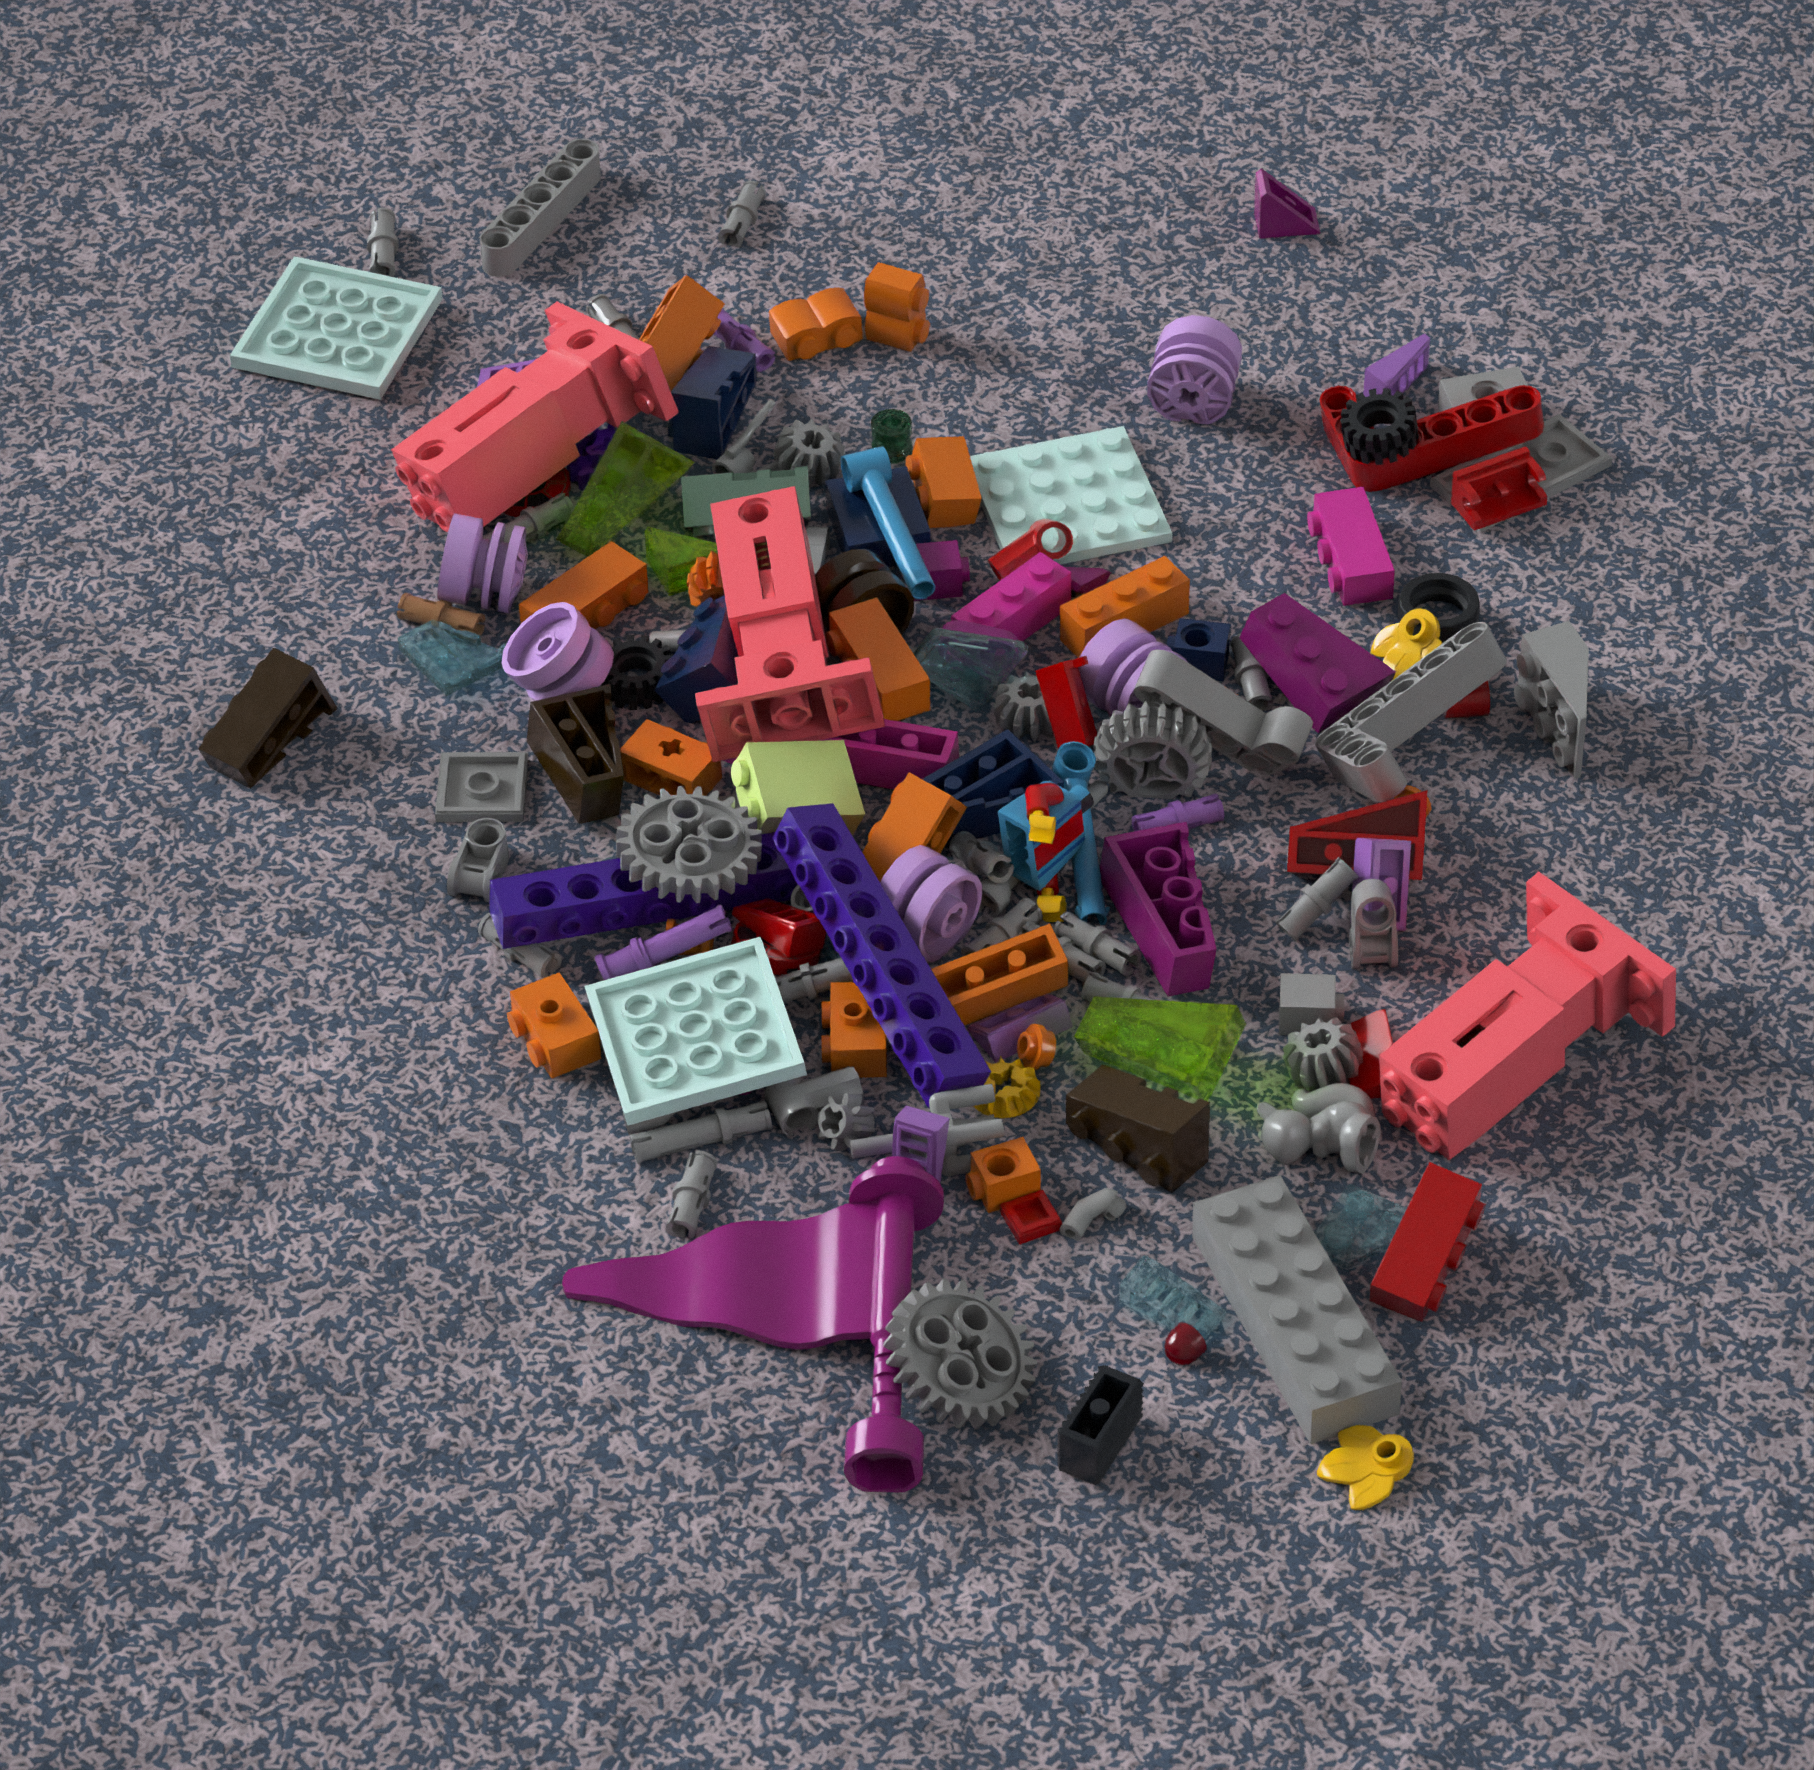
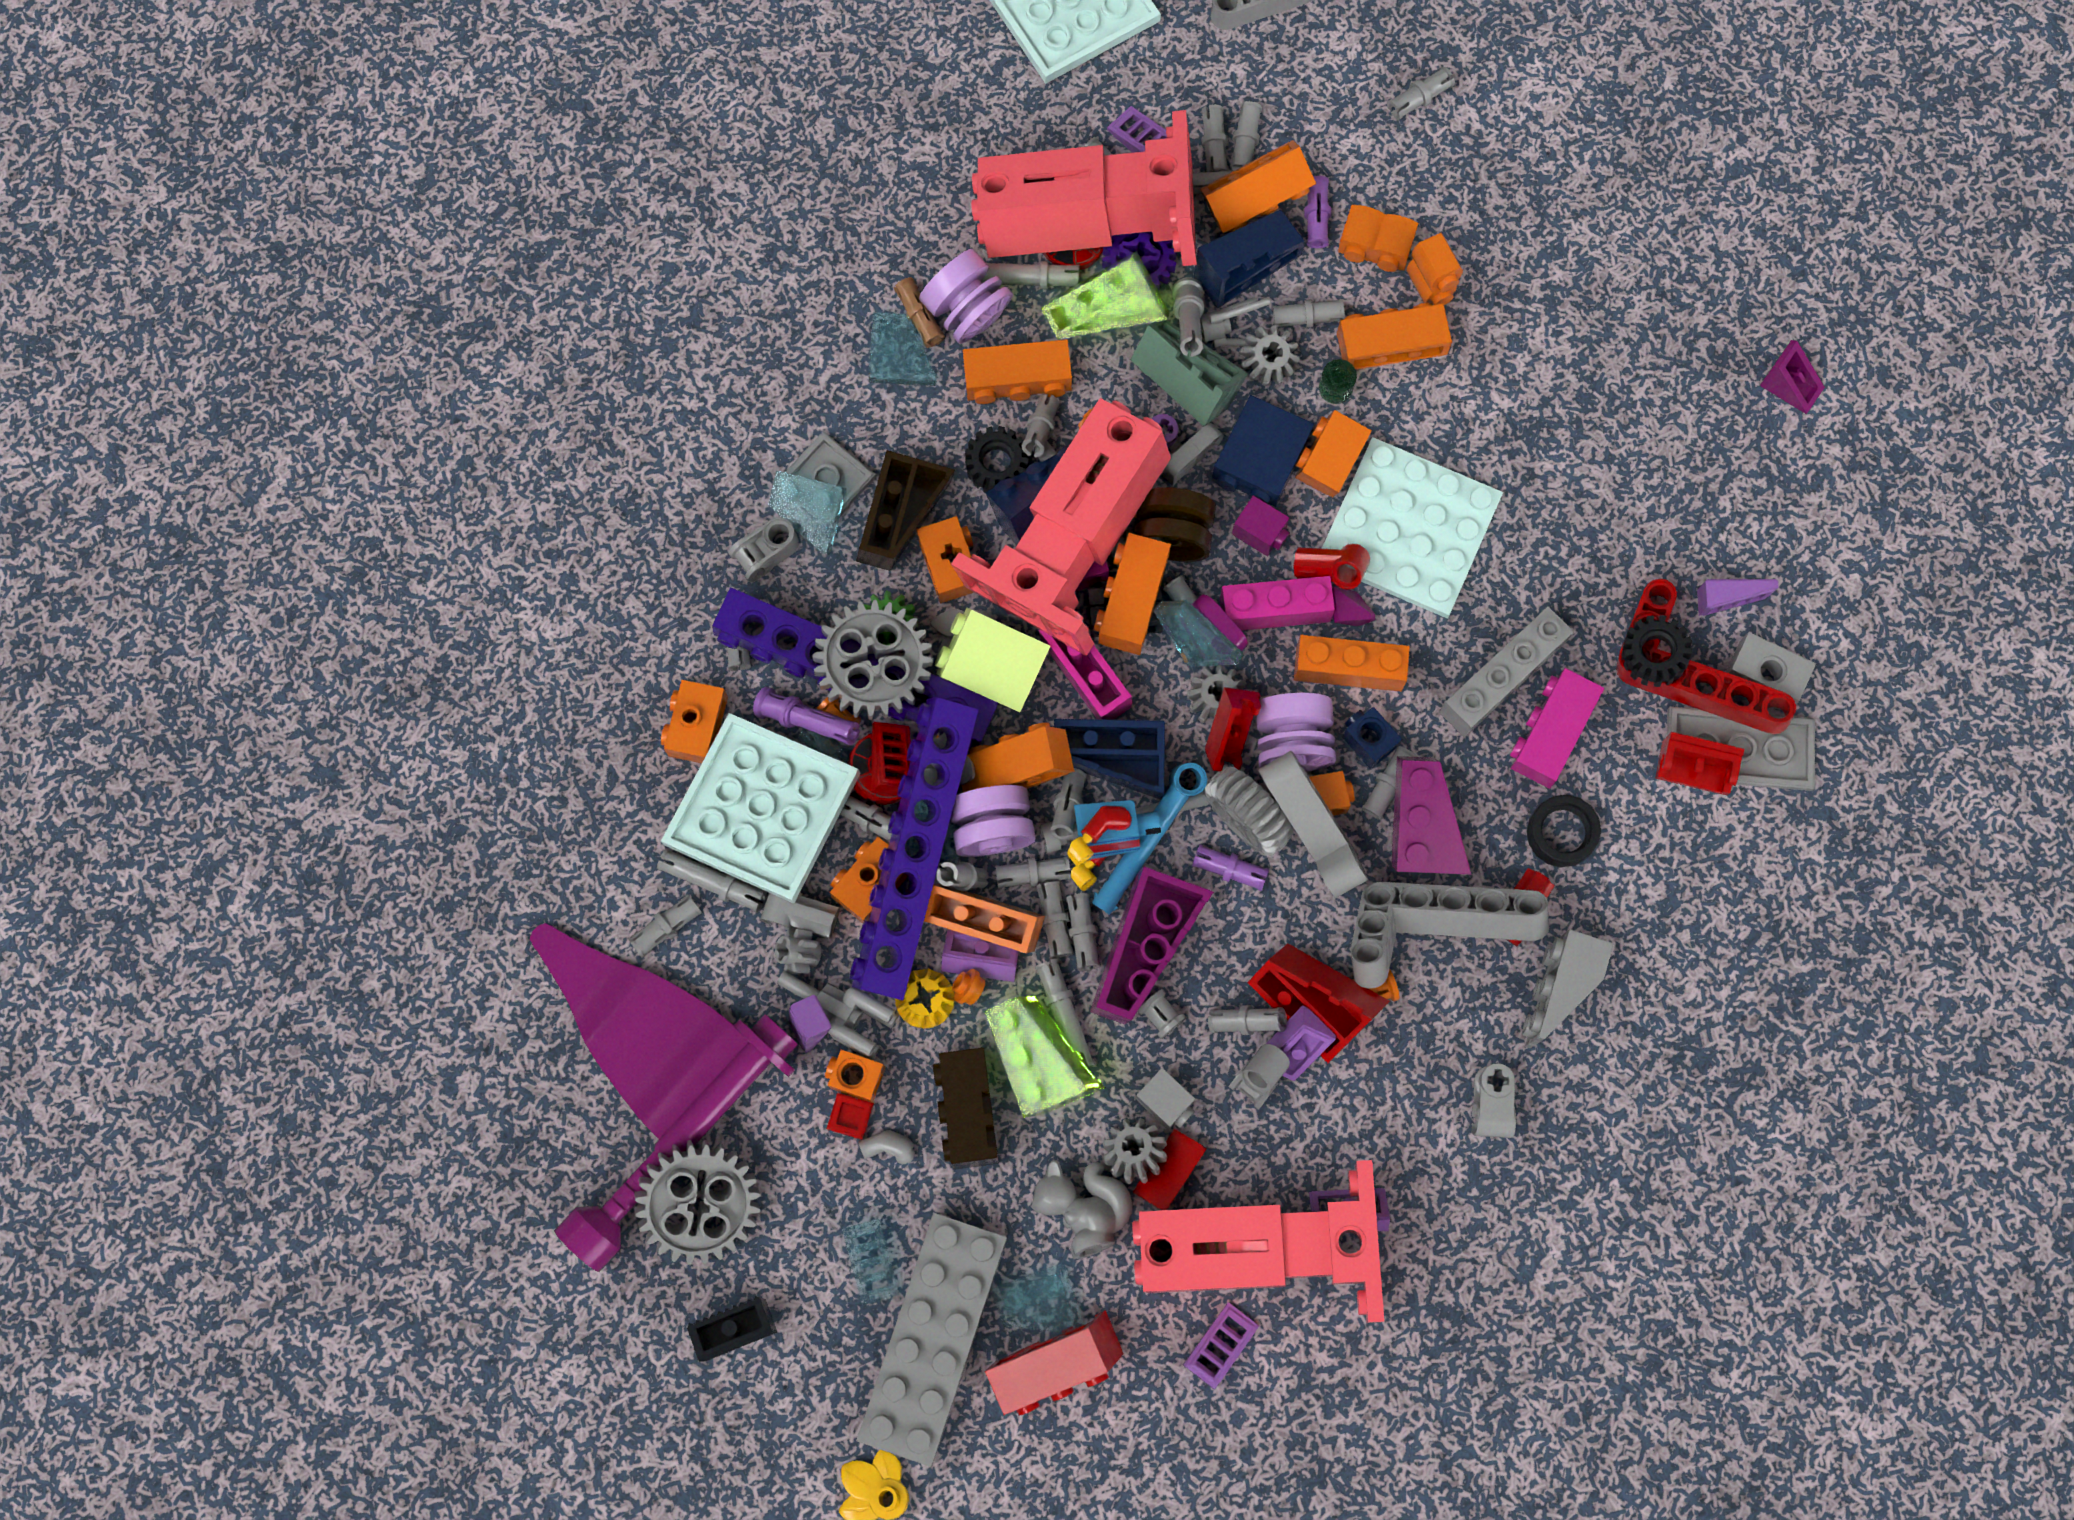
camera: 40 degrees right, 30 degrees up
(265, 718) = (730, 321): dark brown wedge -> none
(493, 795) = (809, 507): none -> clear light blue wing
(557, 653) = (943, 419): lavender wheel -> none
(652, 618) = (1040, 425): none -> light grey pin
(673, 555) = (1105, 383): clear neon green slope -> none
(713, 458) = (1188, 309): none -> light grey pin
(814, 405) = (1308, 313): none -> light grey pin
(872, 473) = (1274, 416): dark azure piece -> none
(909, 375) = (1394, 336): none -> orange brick
(938, 949) = (962, 876): none -> light grey axle
(1184, 1344) = (844, 1302): dark red hinge -> none
(1194, 370) = (1586, 489): lavender wheel -> none
(1236, 952) = (1159, 1001): none -> light grey bush
(1266, 532) = (1506, 672): none -> light grey brick
(1401, 647) = (1503, 853): yellow plate -> none
(1557, 1172) = (1200, 1370): none -> medium lavender slope
(1593, 820) = (1493, 1108): none -> light grey piece

